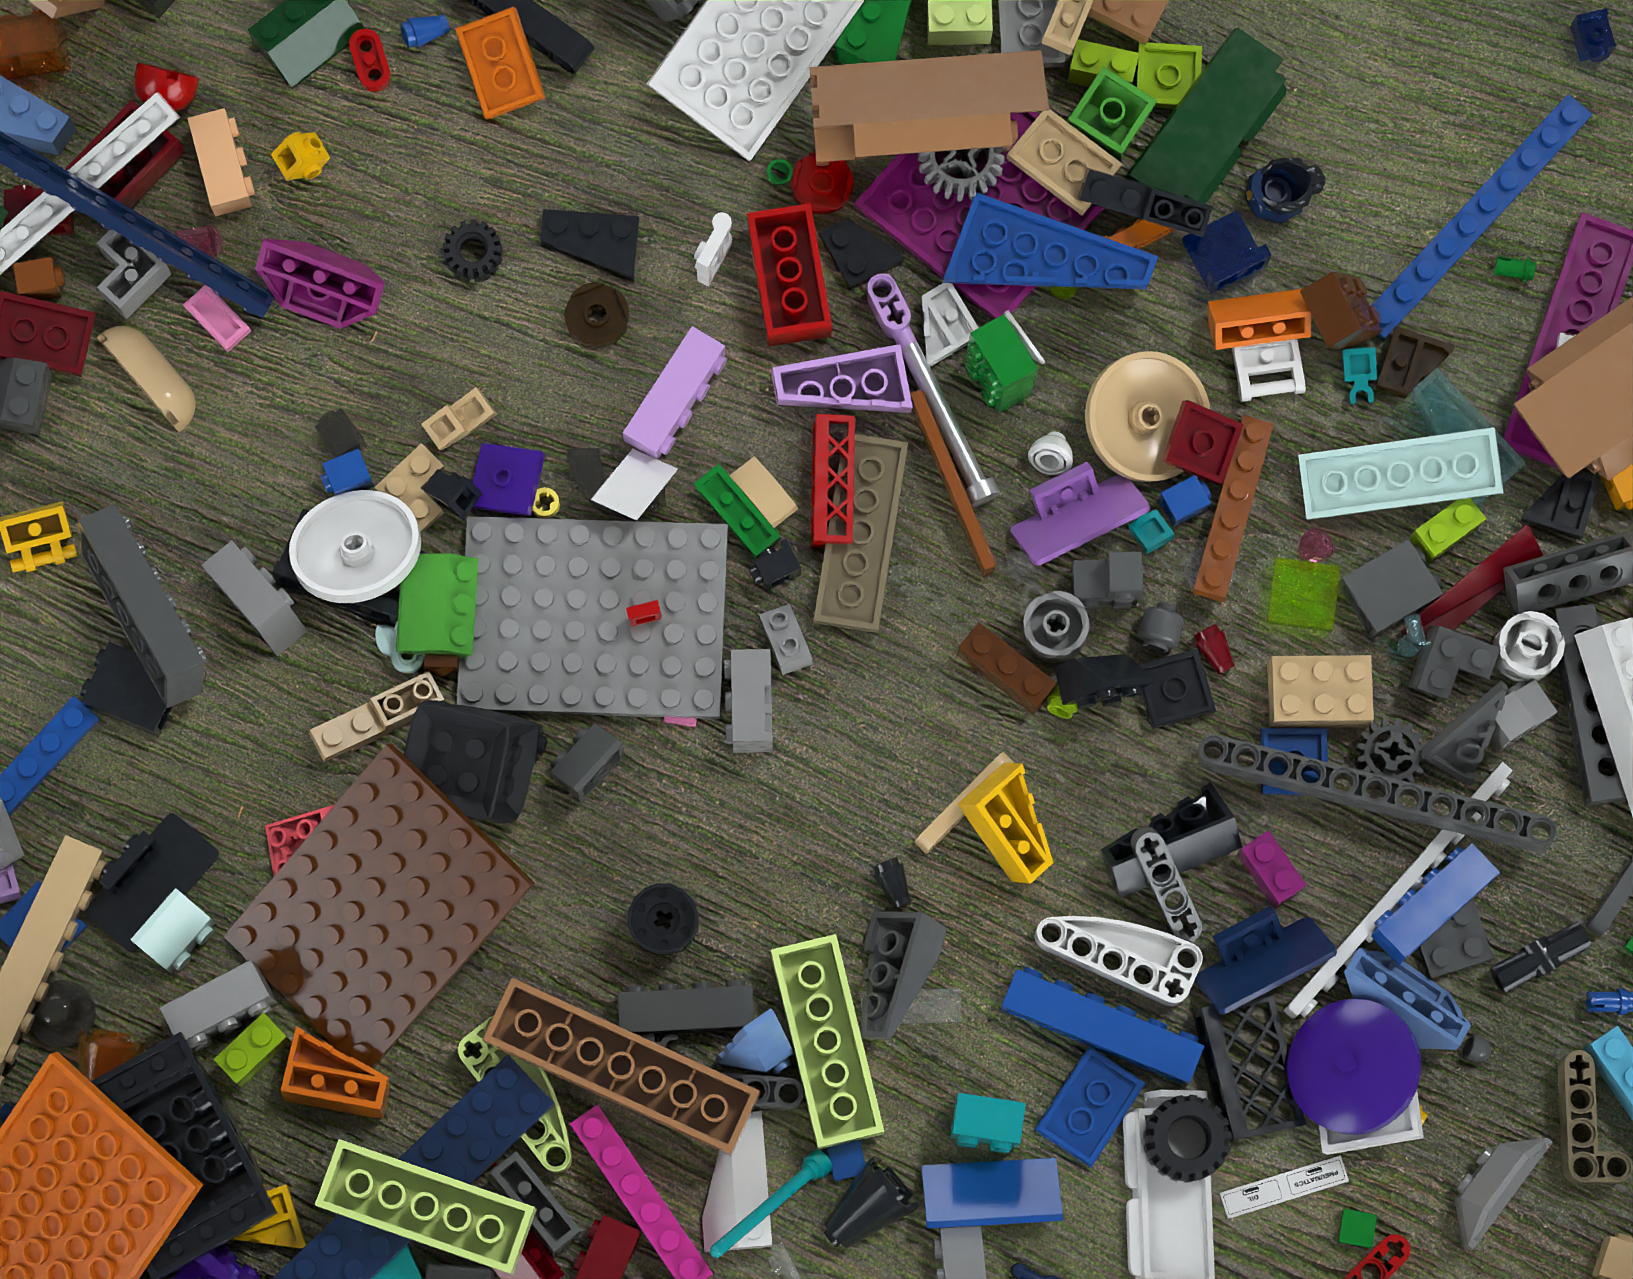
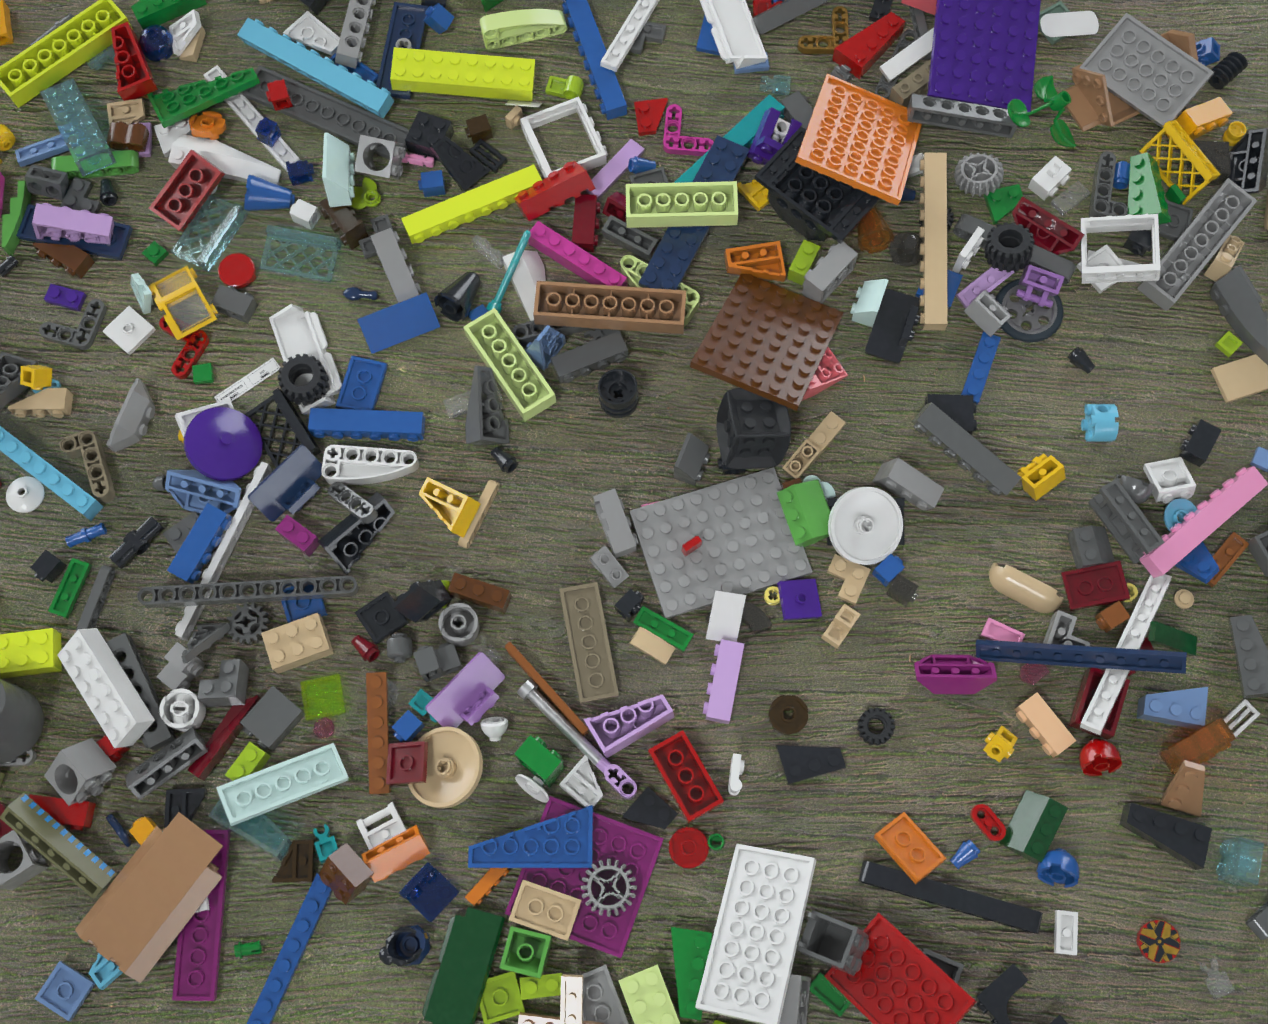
camera: 165 degrees right, 5 degrees down
(452, 492) = (826, 578): black brick -> none
(820, 484) = (623, 664): red fence -> none
(923, 104) = (639, 903): medium nougat panel -> none
(987, 1122) = (411, 352): teal brick -> none
(1145, 202) = (486, 900): black slope -> none
(1414, 639) = (250, 692): clear light blue arm -> none

